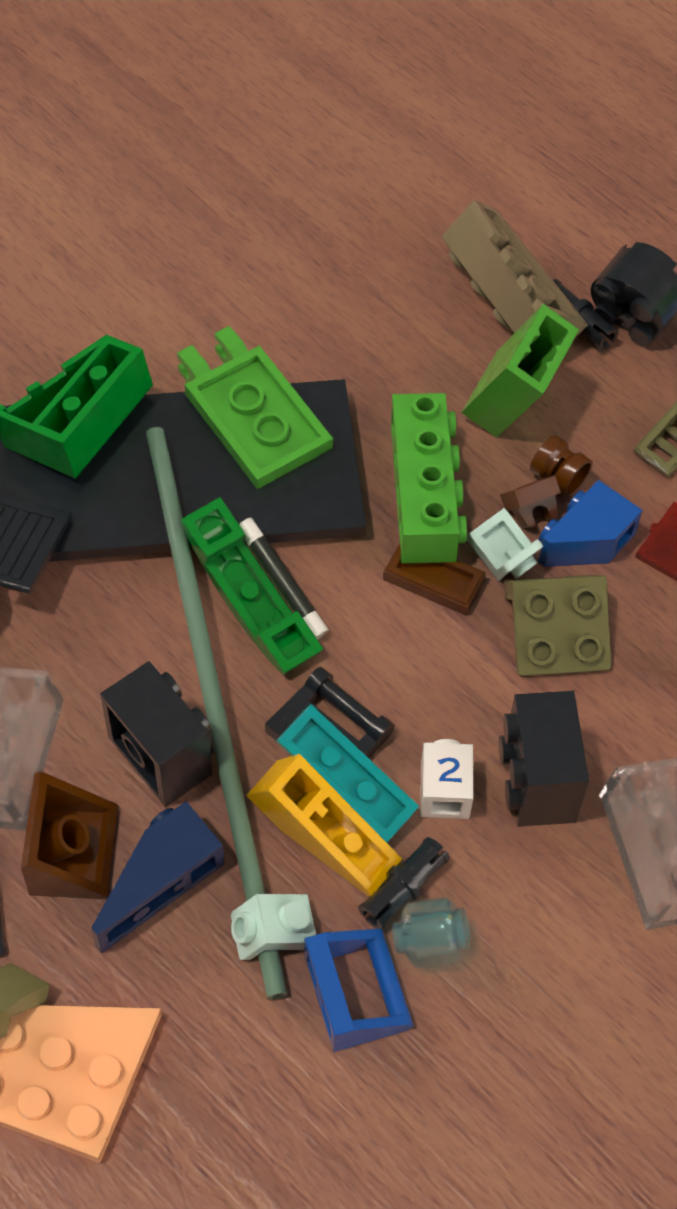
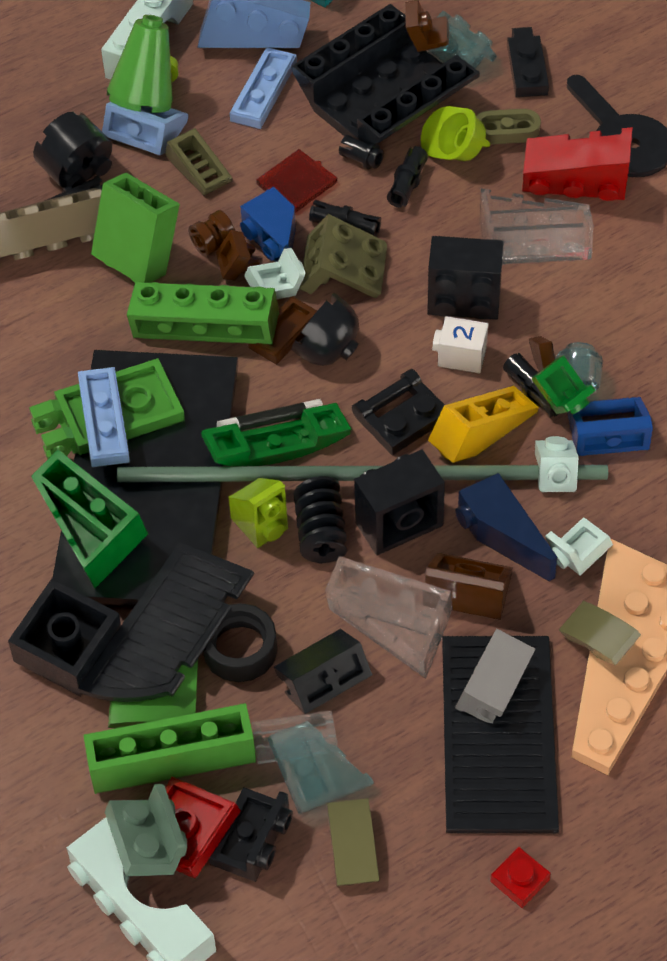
camera: 75 degrees left, 5 degrees down
(122, 658) = (320, 519): none -> black piece
(131, 587) = (260, 510): none -> lime slope
(135, 967) = (579, 546): none -> light aqua bracket
(224, 396) = (103, 417): none -> light blue tile
(348, 772) = (429, 399): teal plate -> none
(377, 906) = (563, 387): none -> green bracket
(420, 616) = (329, 333): none -> black cylinder
(455, 879) = (542, 351): none -> reddish brown tile
(633, 612) = (346, 213): none -> black pin

